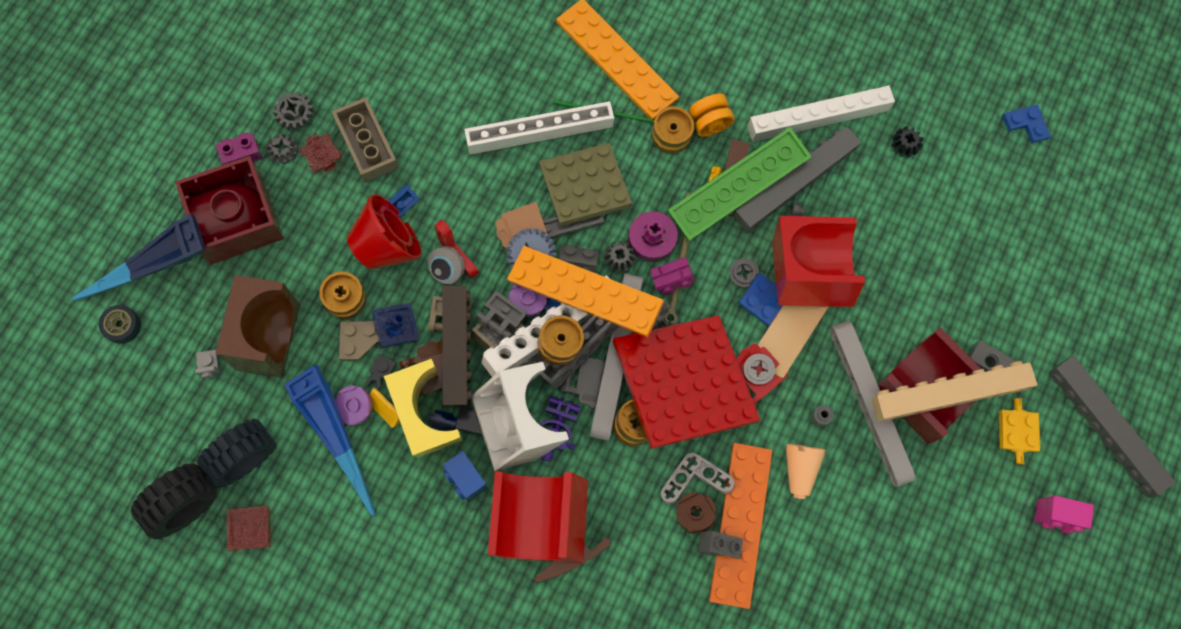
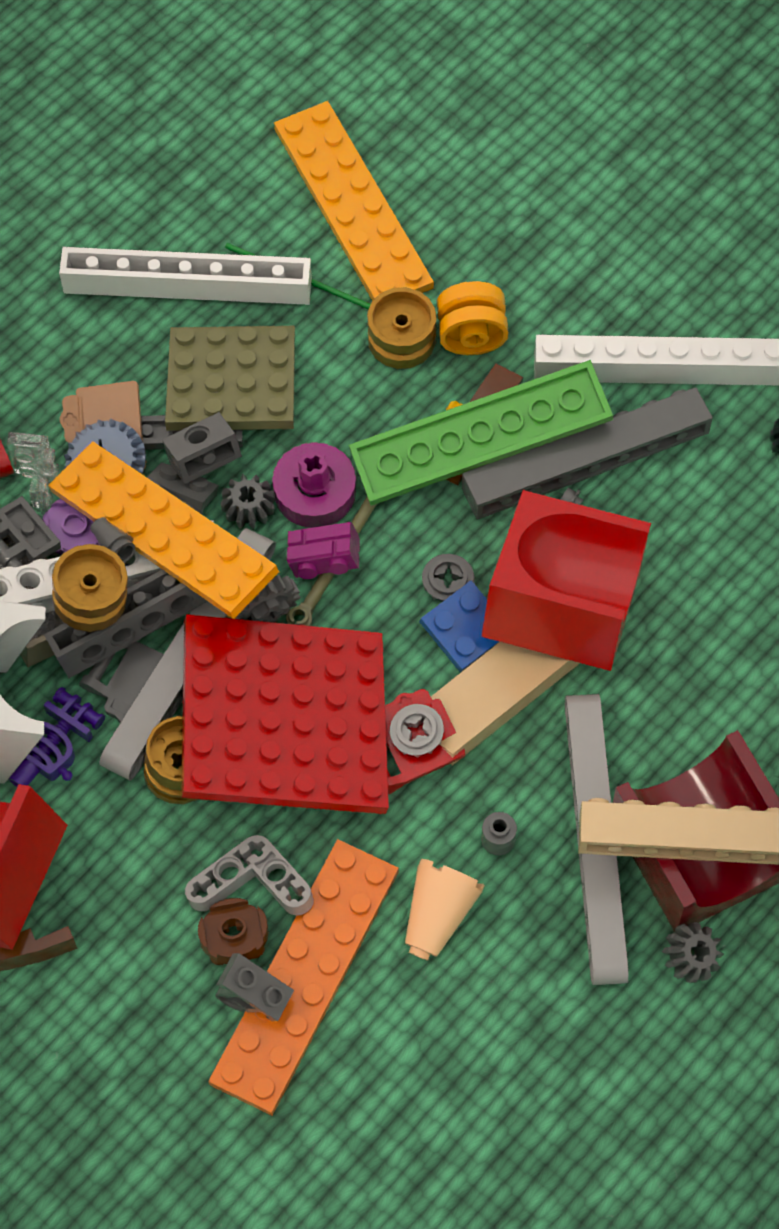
camera: 25 degrees right, 10 degrees down
(491, 261) = (35, 460): none -> clear bracket
(559, 305) = (113, 538): none -> dark grey cone
(595, 230) = (202, 448): none -> dark grey brick
(944, 455) = (688, 965): none -> dark grey gear

